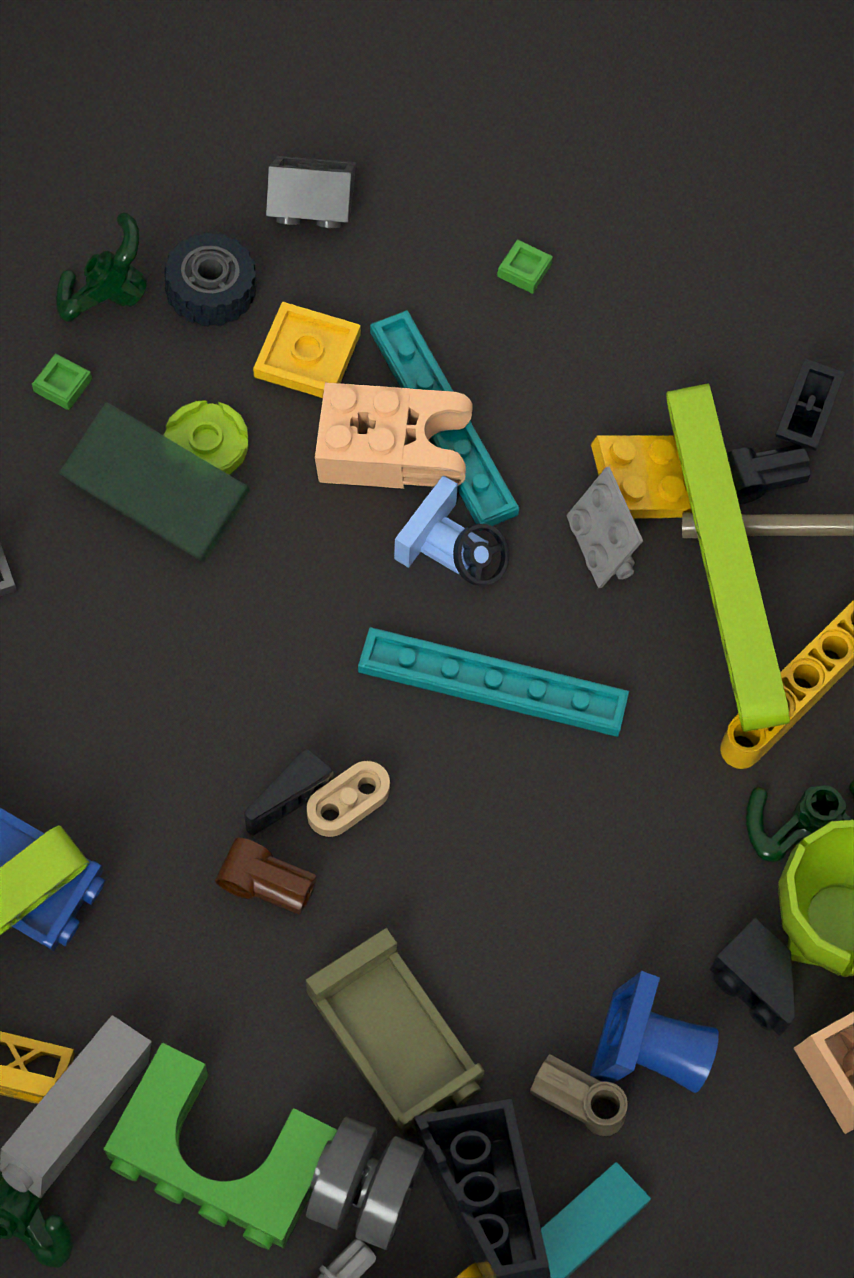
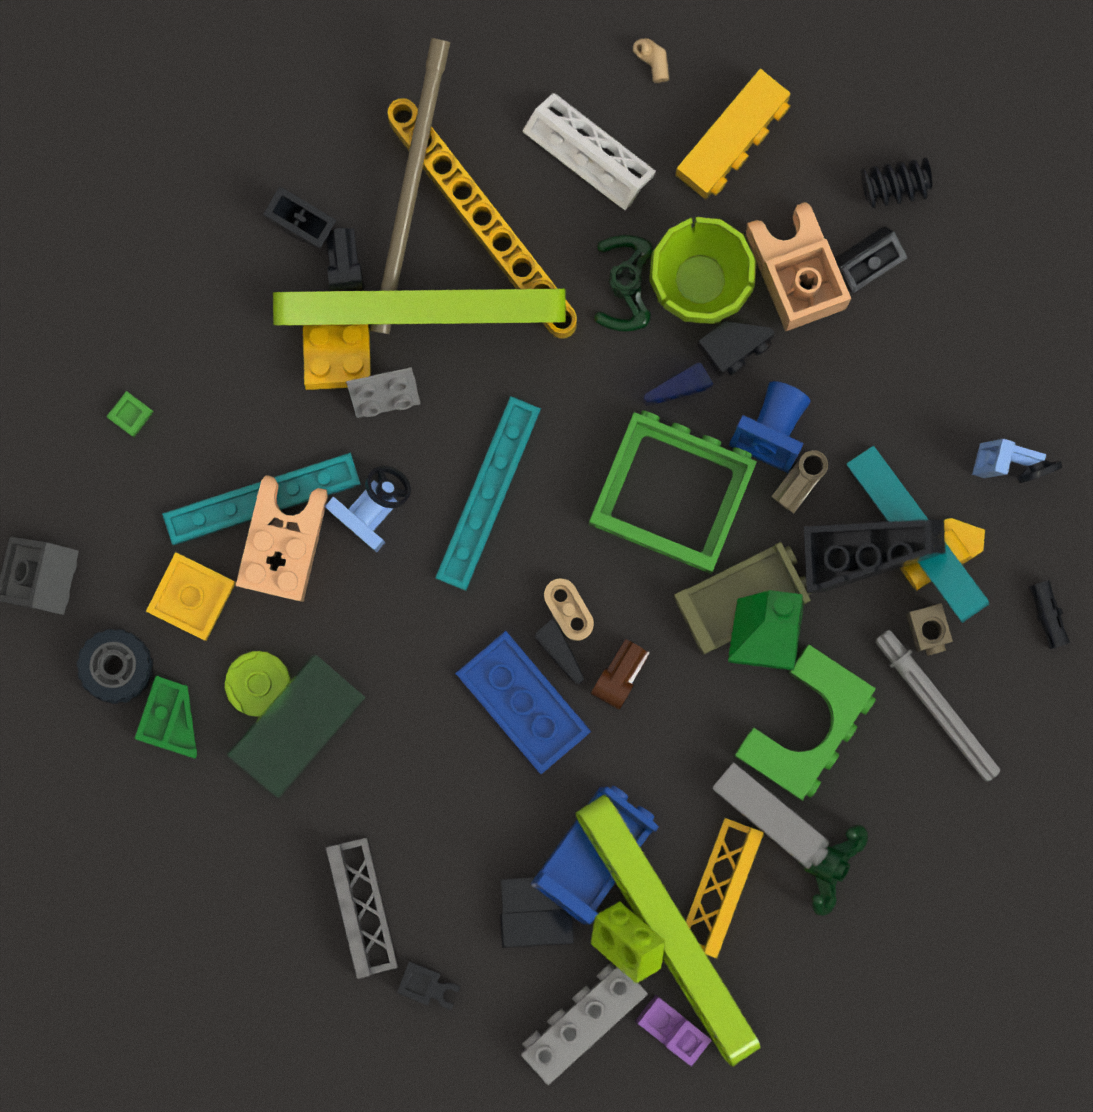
camera: 75 degrees left, 20 degrees up
(62, 381) = (190, 791): bright green tile -> none
(106, 277) = (108, 748): dark green piece -> none
(150, 344) = (168, 718): none -> green wing
(213, 759) = (523, 702): none -> blue tile
(351, 1070) = (767, 630): none -> green slope
(352, 1177) = (842, 636): dark grey wheel -> none
(555, 842) = (678, 436): none -> bright green piece
(690, 913) = (685, 383): none -> clear blue slope

